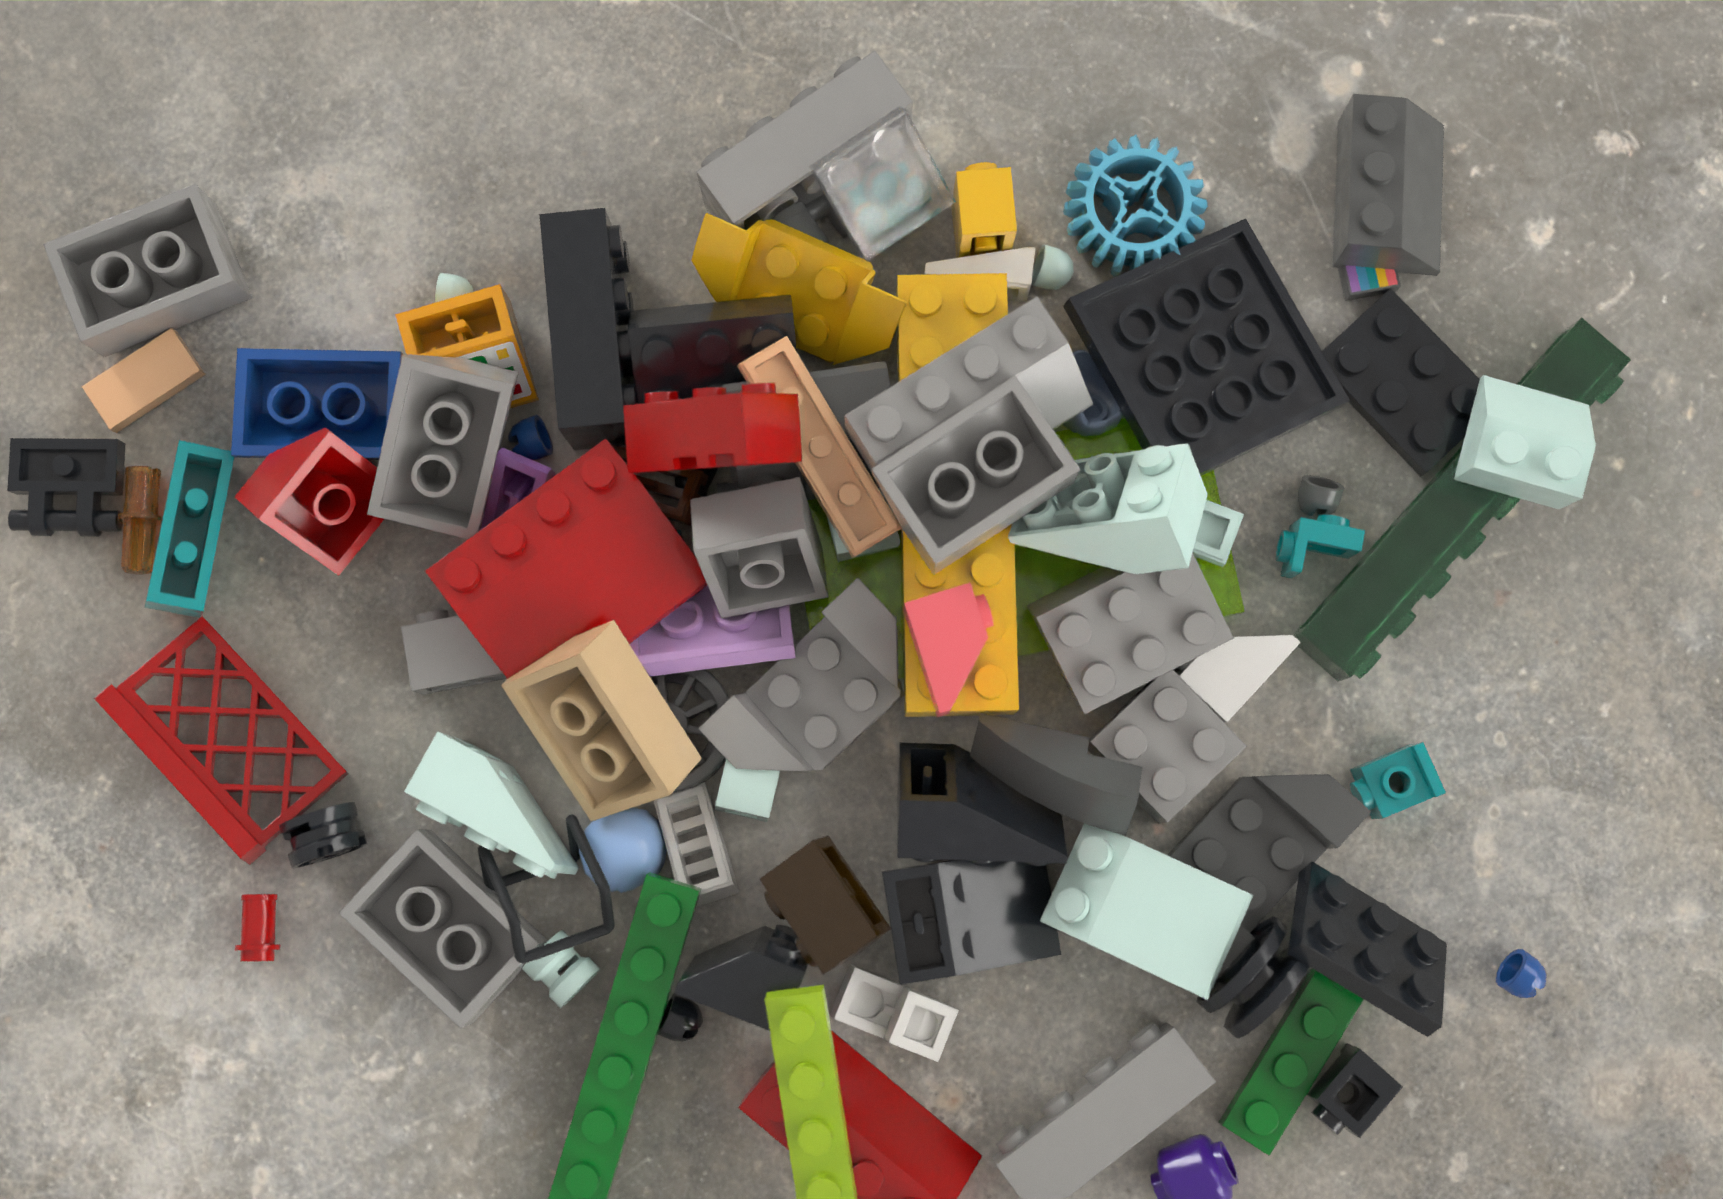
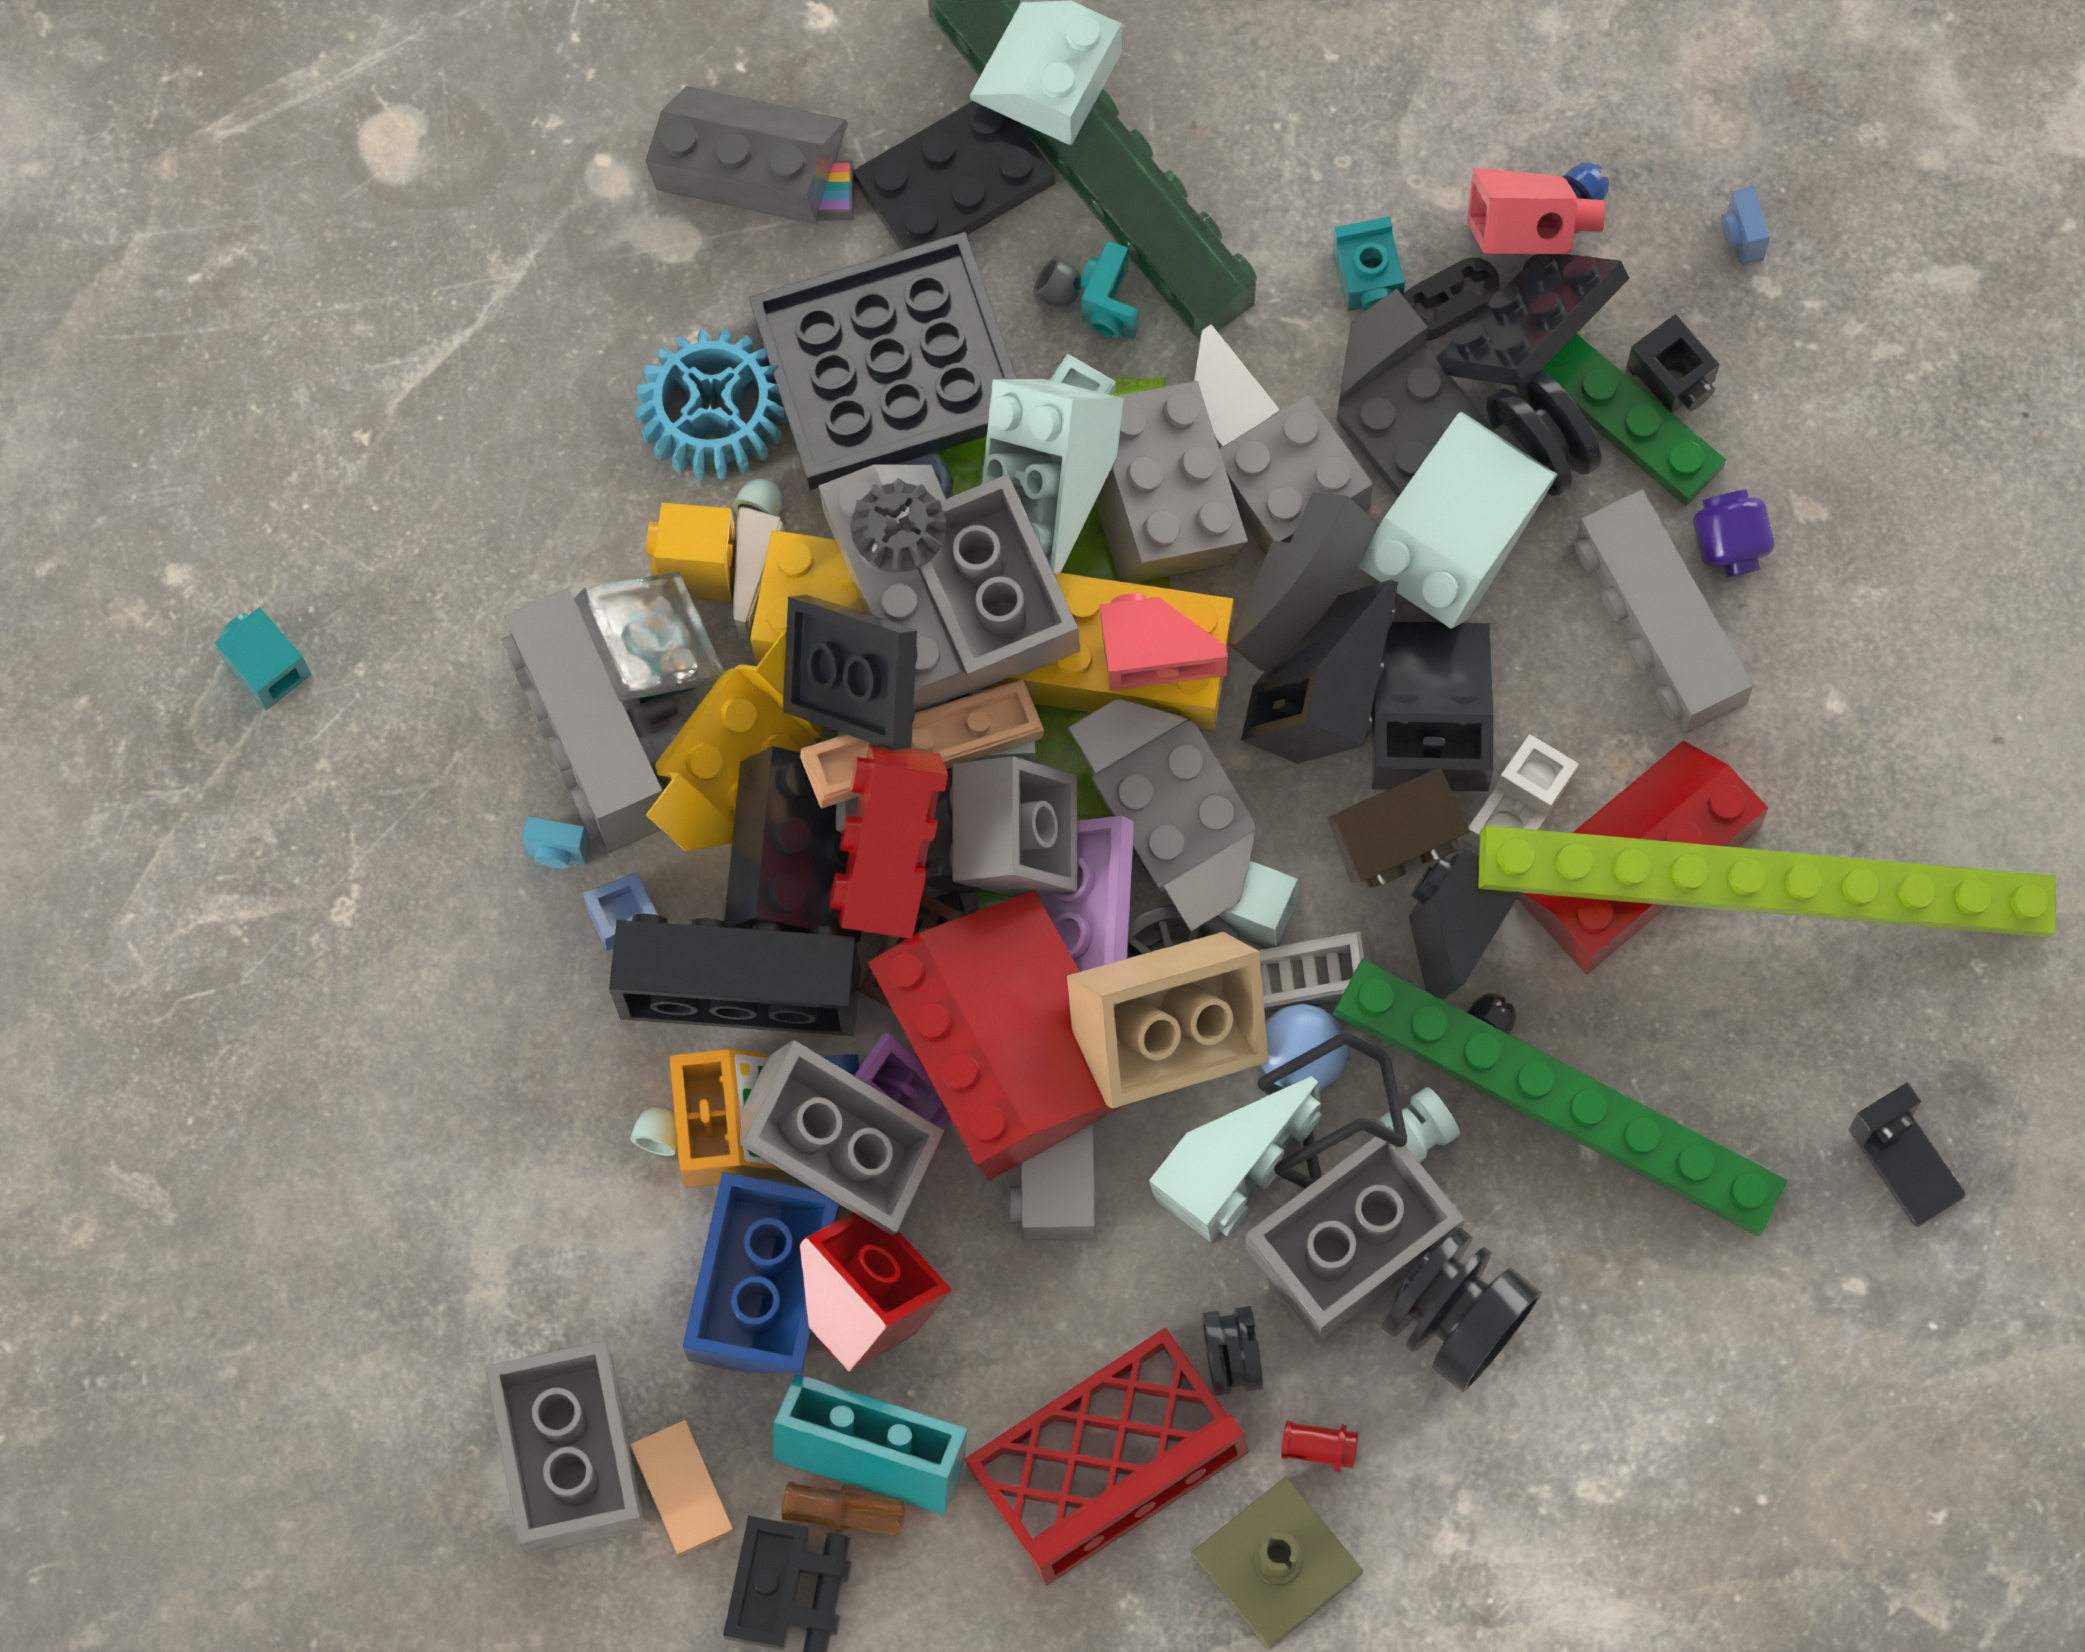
camera: 75 degrees left, 10 degrees down
(150, 908) = (1277, 1563): none -> olive tile
(378, 1050) = (1460, 1309): none -> black wheel
(645, 223) = (616, 902): none -> medium blue plate
(694, 149) = (555, 842): none -> medium azure plate
(861, 364) = (850, 671): none -> black plate
(978, 383) = (904, 550): none -> dark grey gear
(1388, 854) = (1446, 284): none -> black beam
(1478, 926) = (1528, 213): none -> coral torso
(1513, 1140) = (1746, 226): none -> medium blue plate

